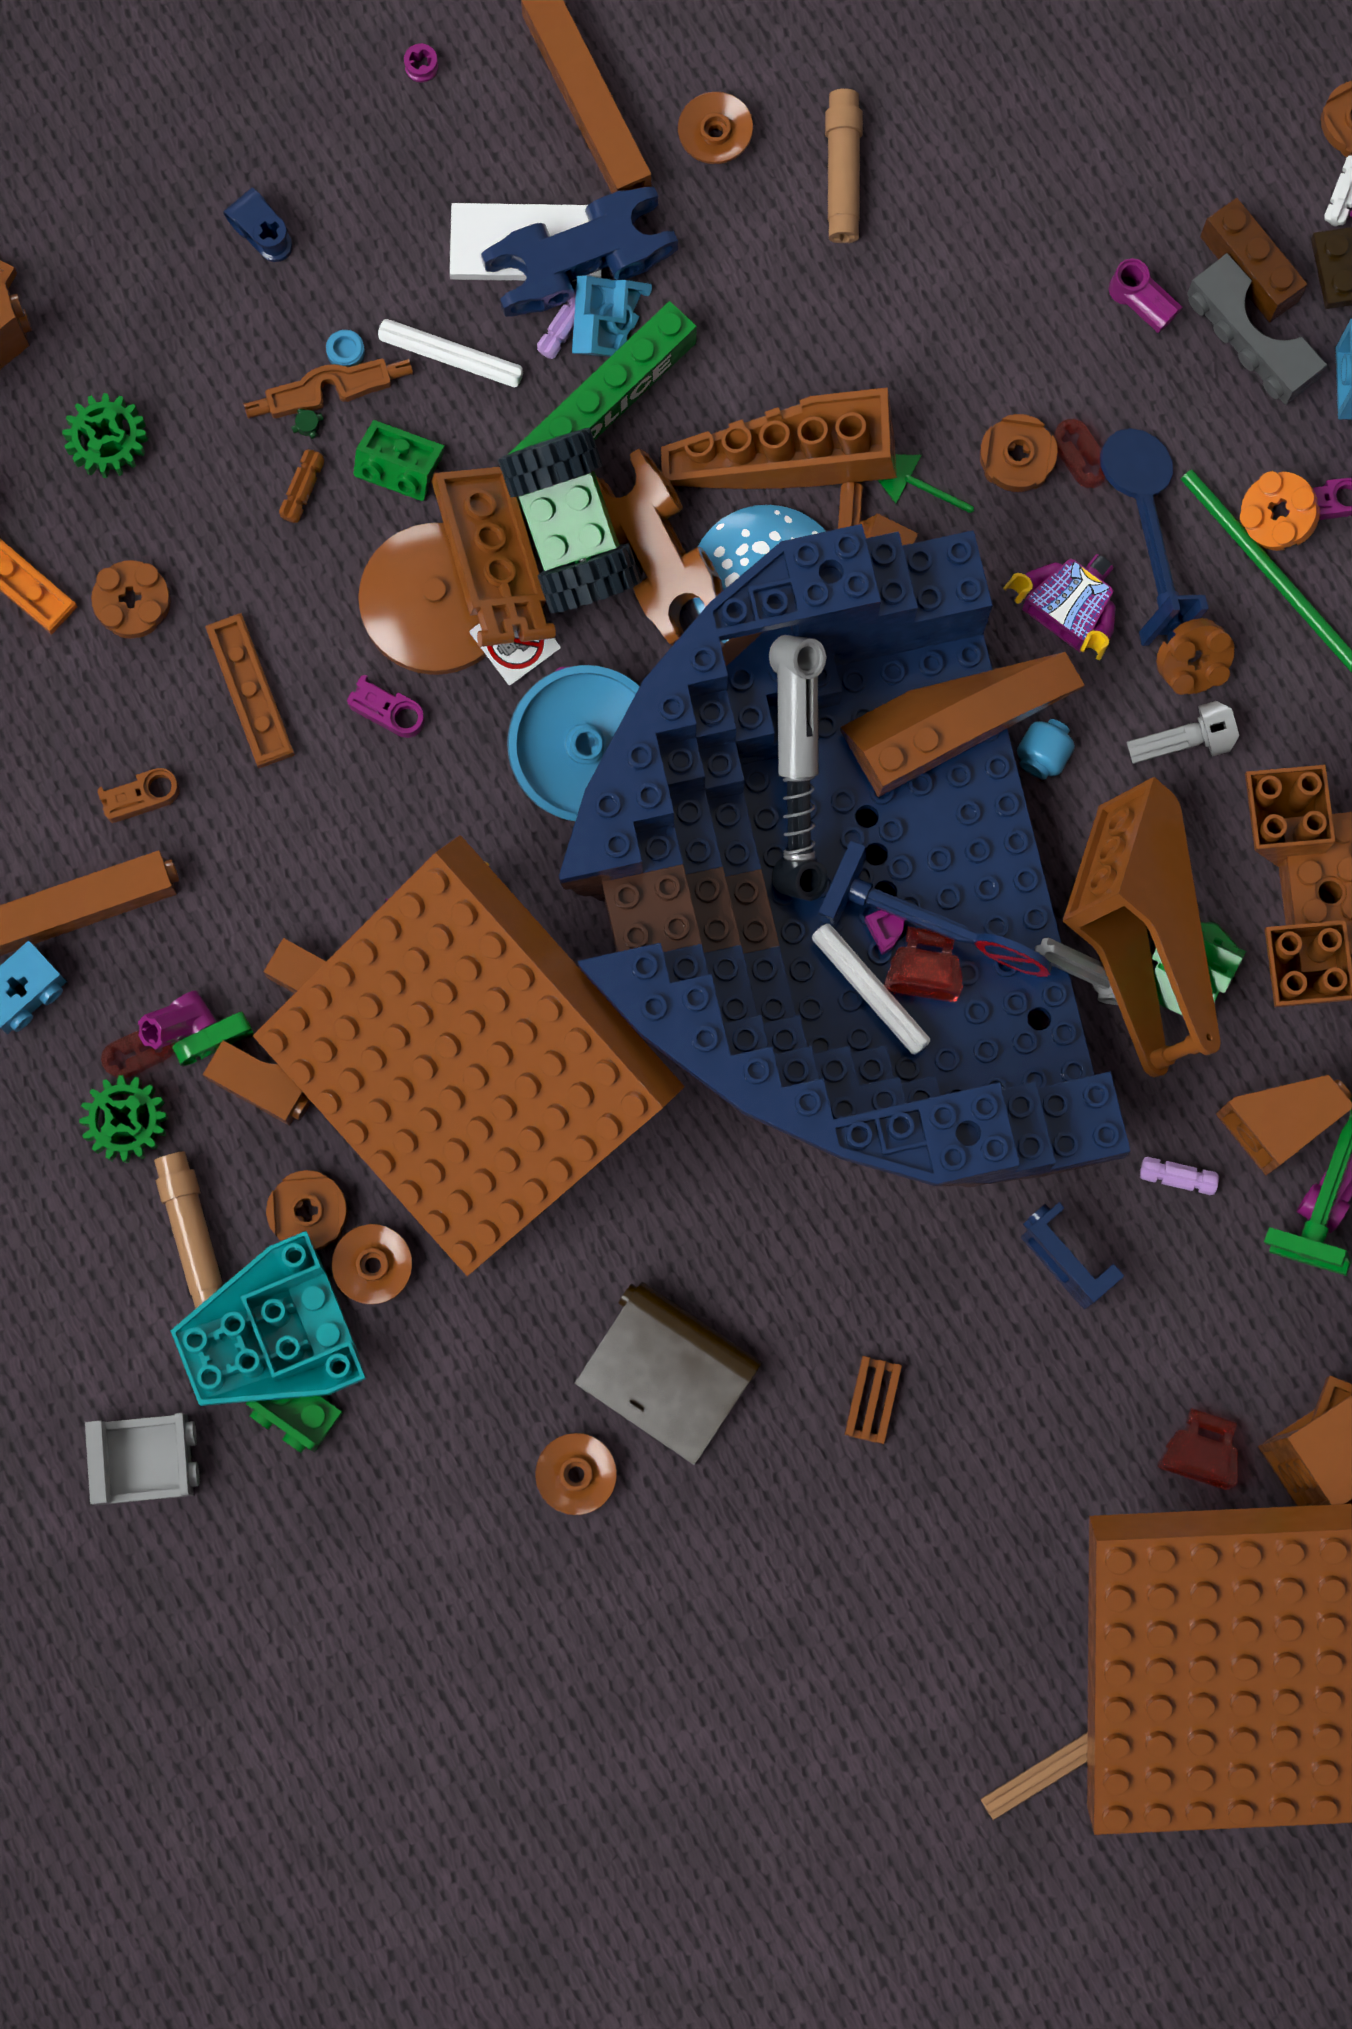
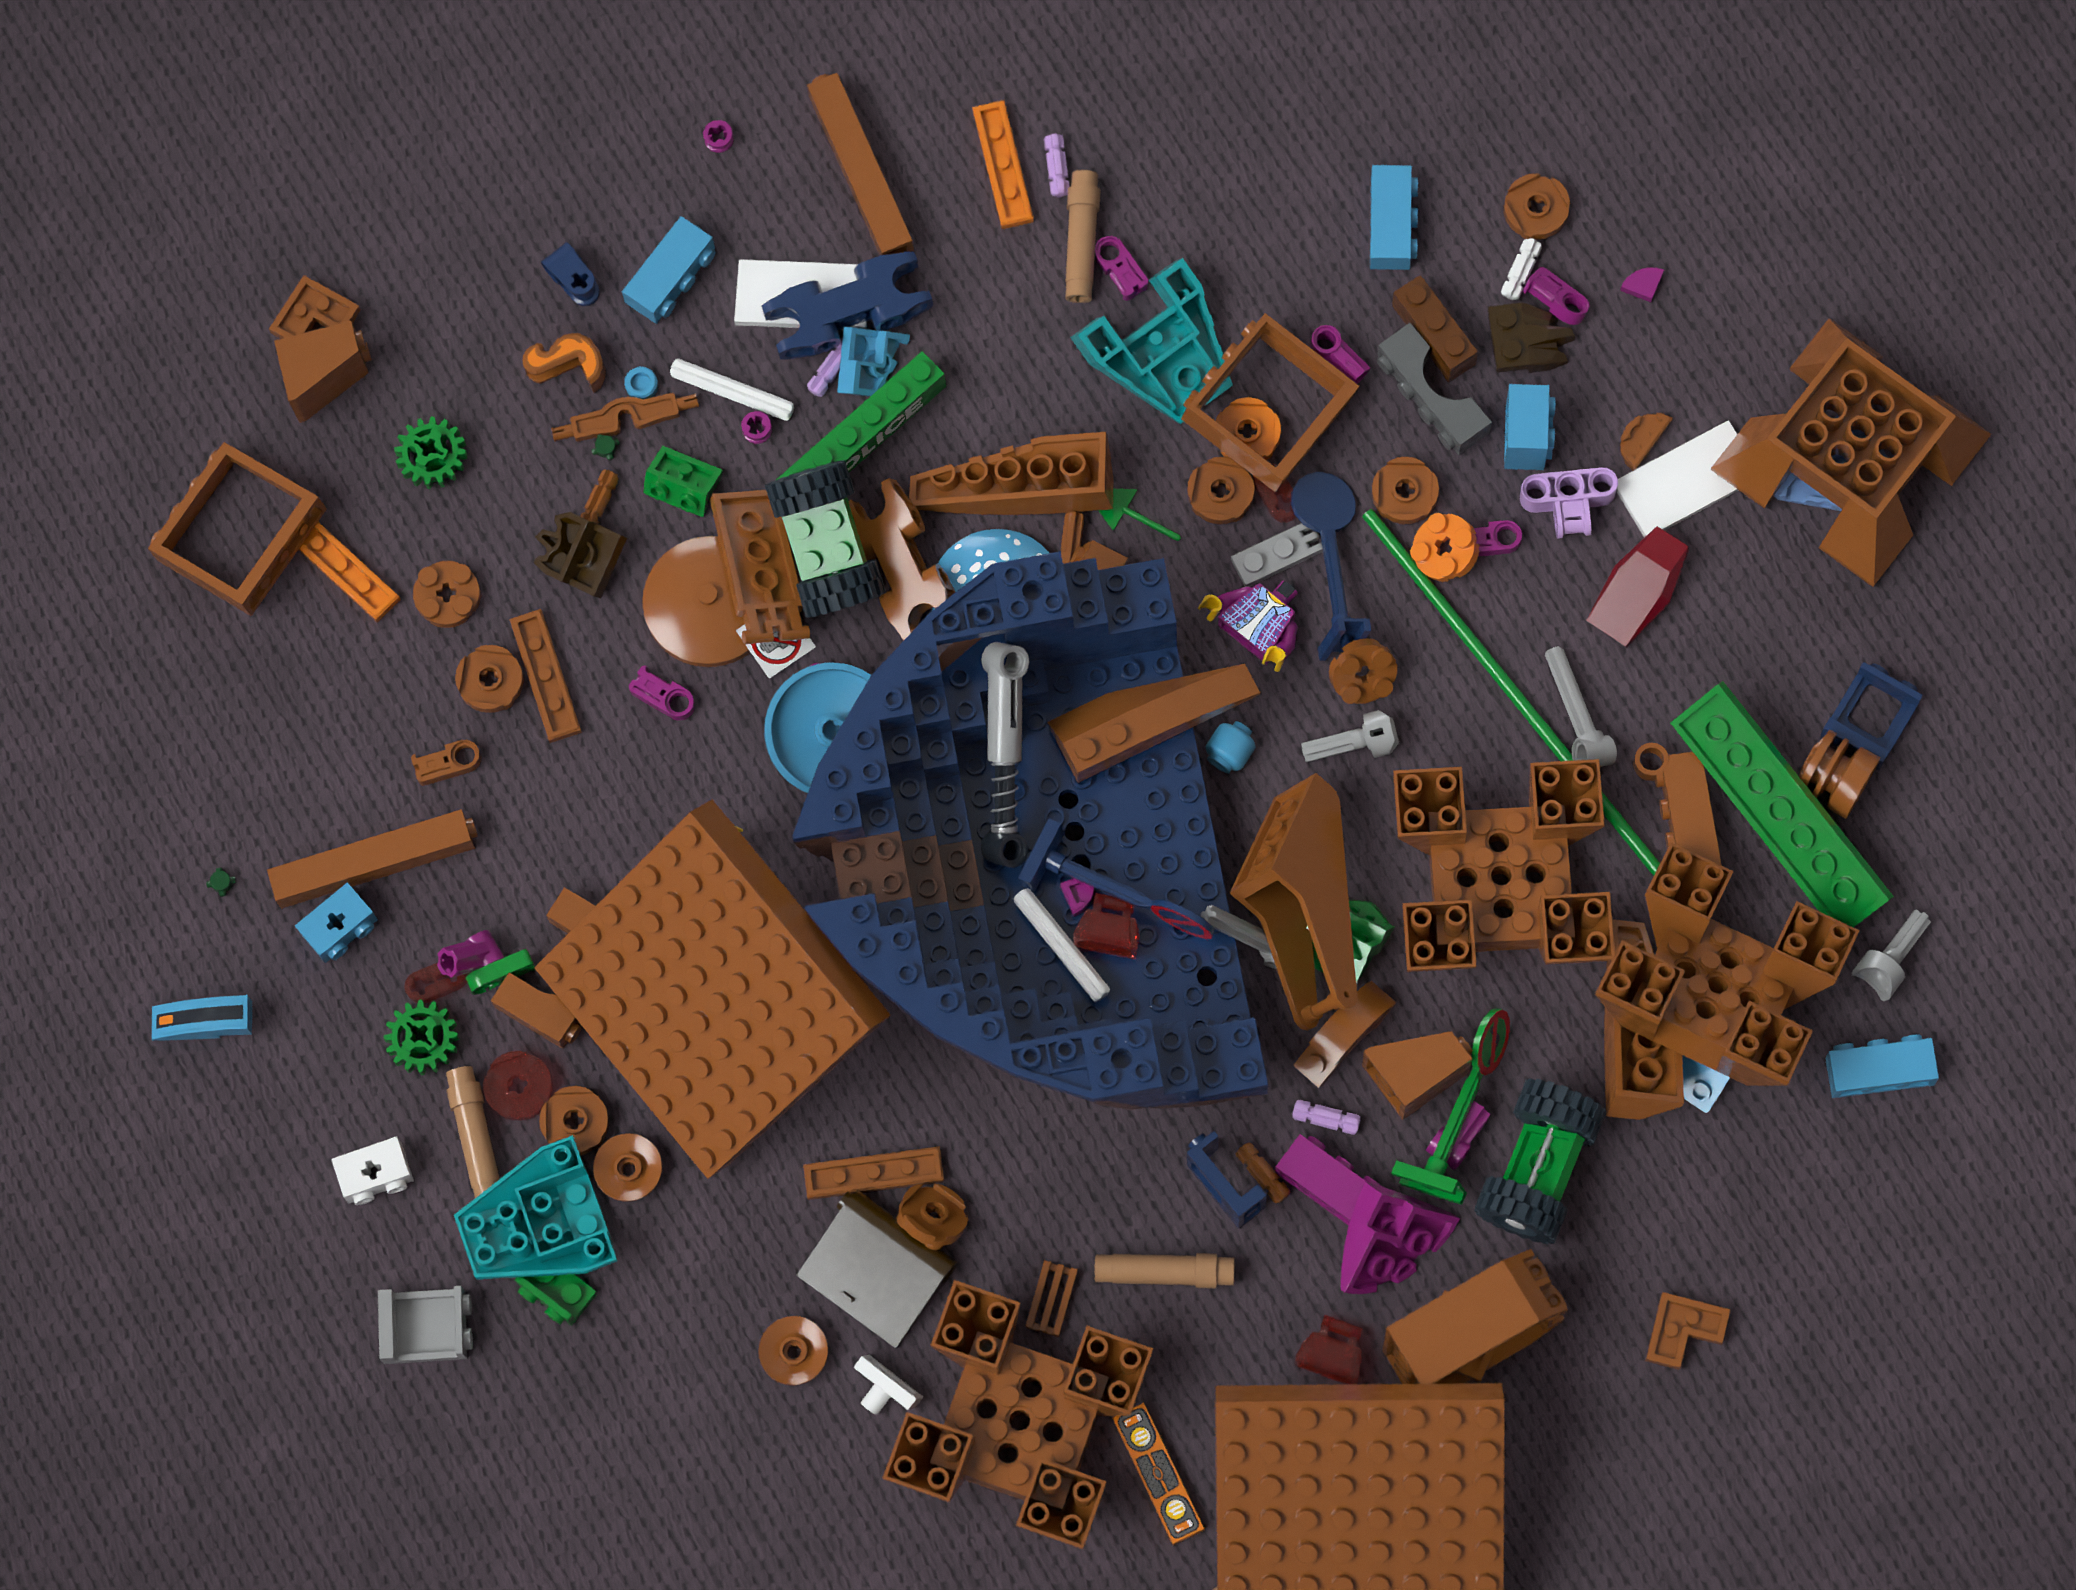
camera: 10 degrees right, 5 degrees down
(51, 1275) = (354, 1171): none -> white brick
(170, 680) = (478, 664): none -> dark orange plate
(219, 1161) = (501, 1076): none -> clear red plate
(254, 319) = (564, 355): none -> dark orange animal
(284, 546) = (580, 553): none -> dark brown plate
(372, 217) = (669, 270): none -> dark azure brick
(476, 384) = (766, 424): none -> magenta bush
(658, 1259) = (873, 1173): none -> dark orange tile
(686, 1511) = (885, 1386): none -> white tile
(713, 112) = (969, 186): dark orange dish -> none
(721, 1324) = (926, 1229): none -> dark orange plate
(749, 84) = (1003, 164): none -> orange tile
(810, 85) = (1056, 165): none -> lavender axle
(893, 202) = (1123, 269): none -> magenta piece
(944, 1497) = (979, 1336): none -> dark orange slope
(950, 303) = (1167, 353): none -> teal wedge
(1002, 1362) = (1202, 1270): none -> medium nougat piece
(1007, 1602) = (1158, 1474): none -> tile
(1060, 369) = (1261, 418): none -> orange plate
(1084, 525) = (1276, 554): none -> light grey hinge
(1107, 299) = (1303, 358): none -> dark orange window
(1109, 1243) = (1263, 1172): none -> dark orange axle
(1190, 1253) = (1322, 1177): none -> magenta brick
(1195, 1082) = (1343, 1033): none -> dark orange arch
(1197, 134) = (1392, 217): none -> dark azure brick
(1244, 432) = (1393, 505): none -> dark orange plate
(1260, 1313) = (1387, 1237): none -> magenta brick

